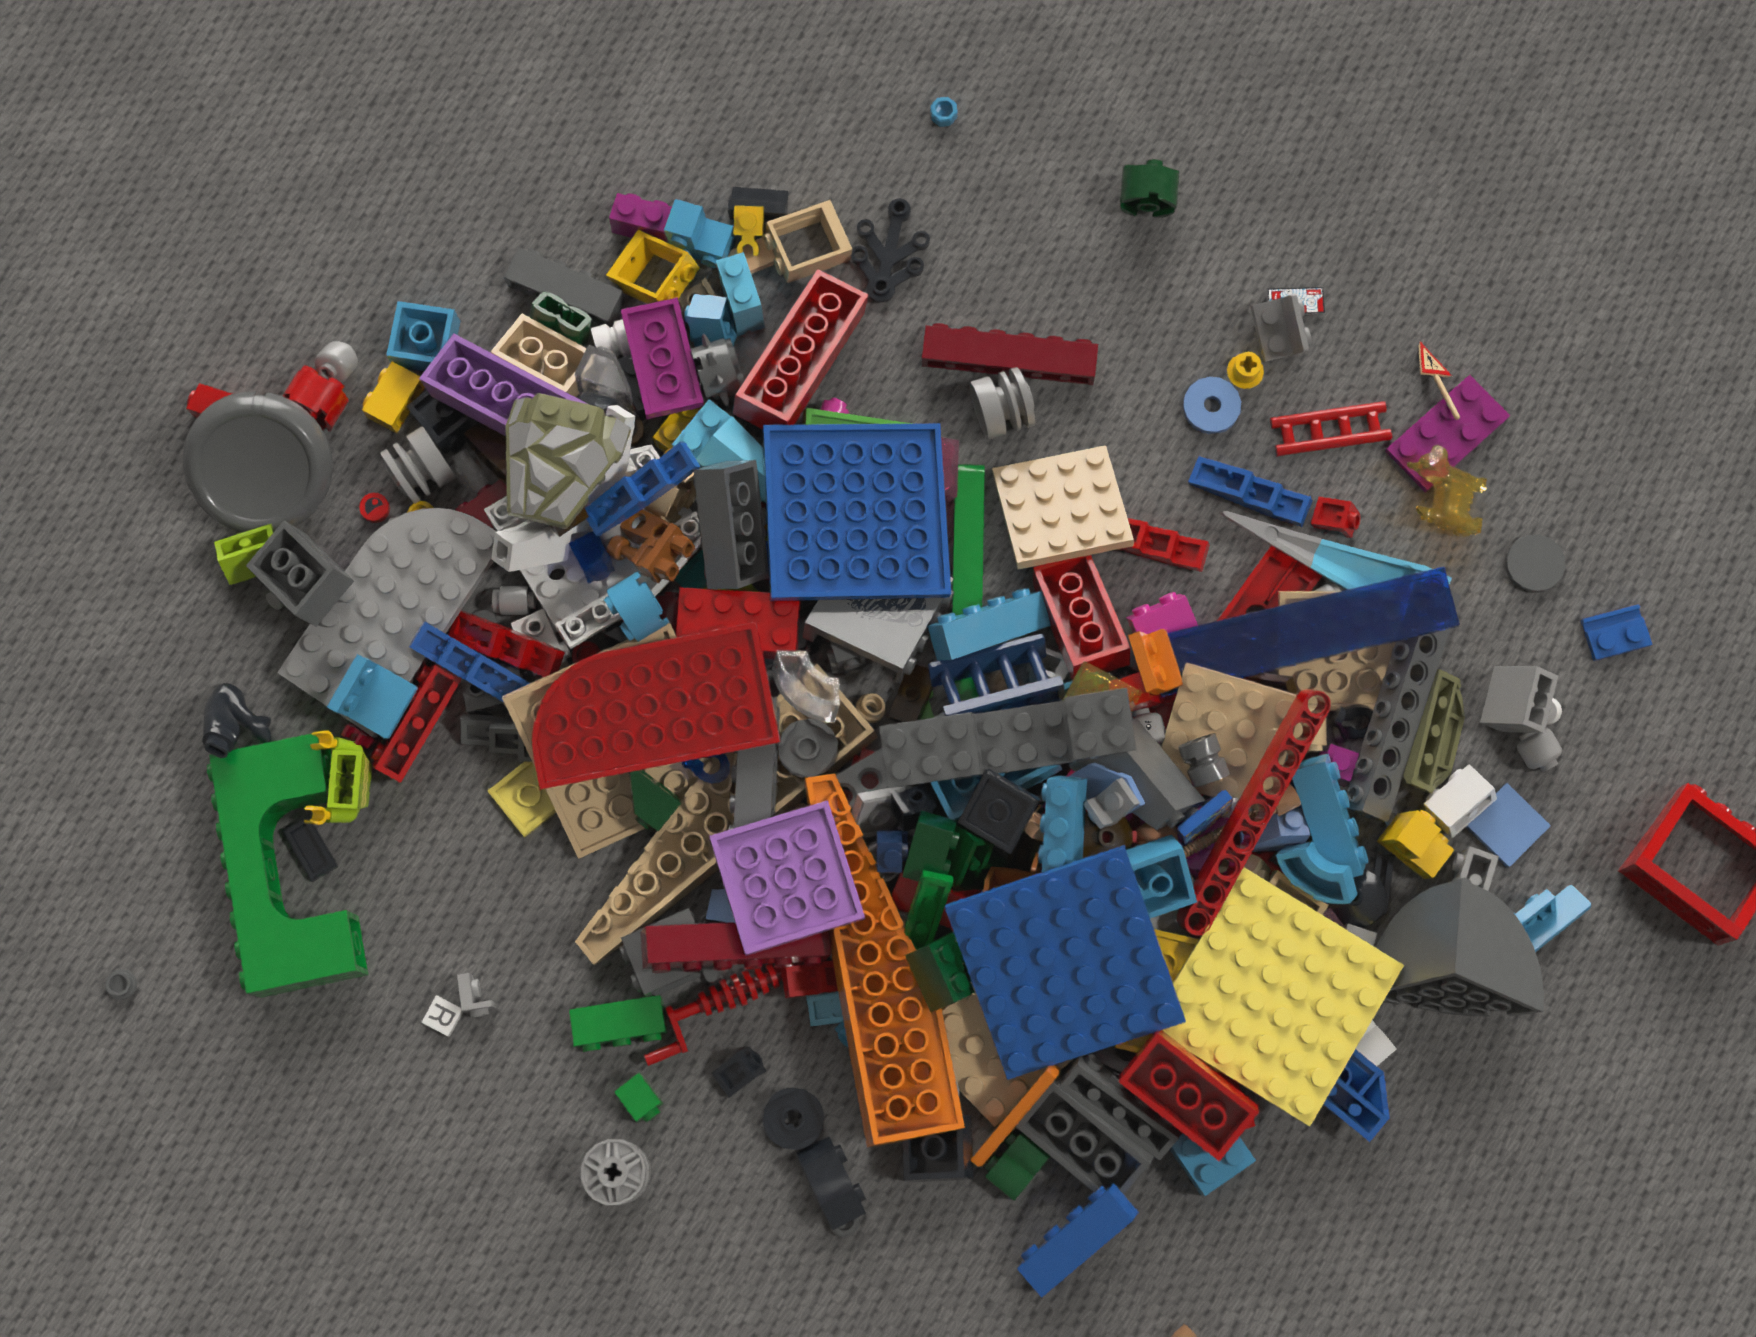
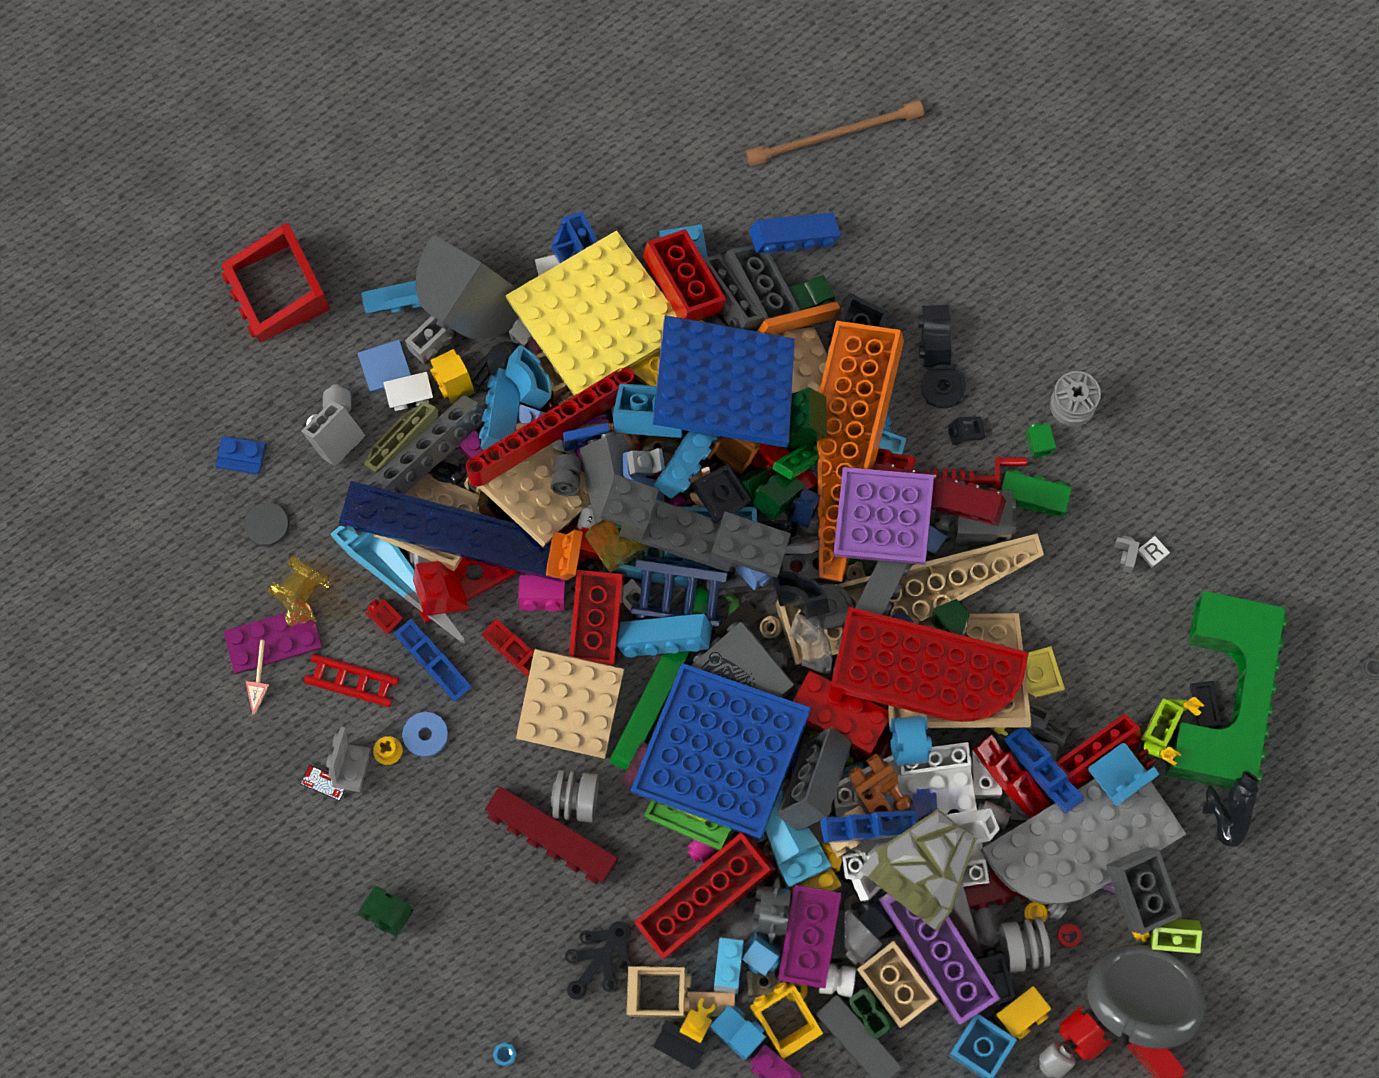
camera: 155 degrees left, 5 degrees down
(843, 738) = (800, 593): none -> black brick
(1282, 561) = (438, 589): none -> red slope

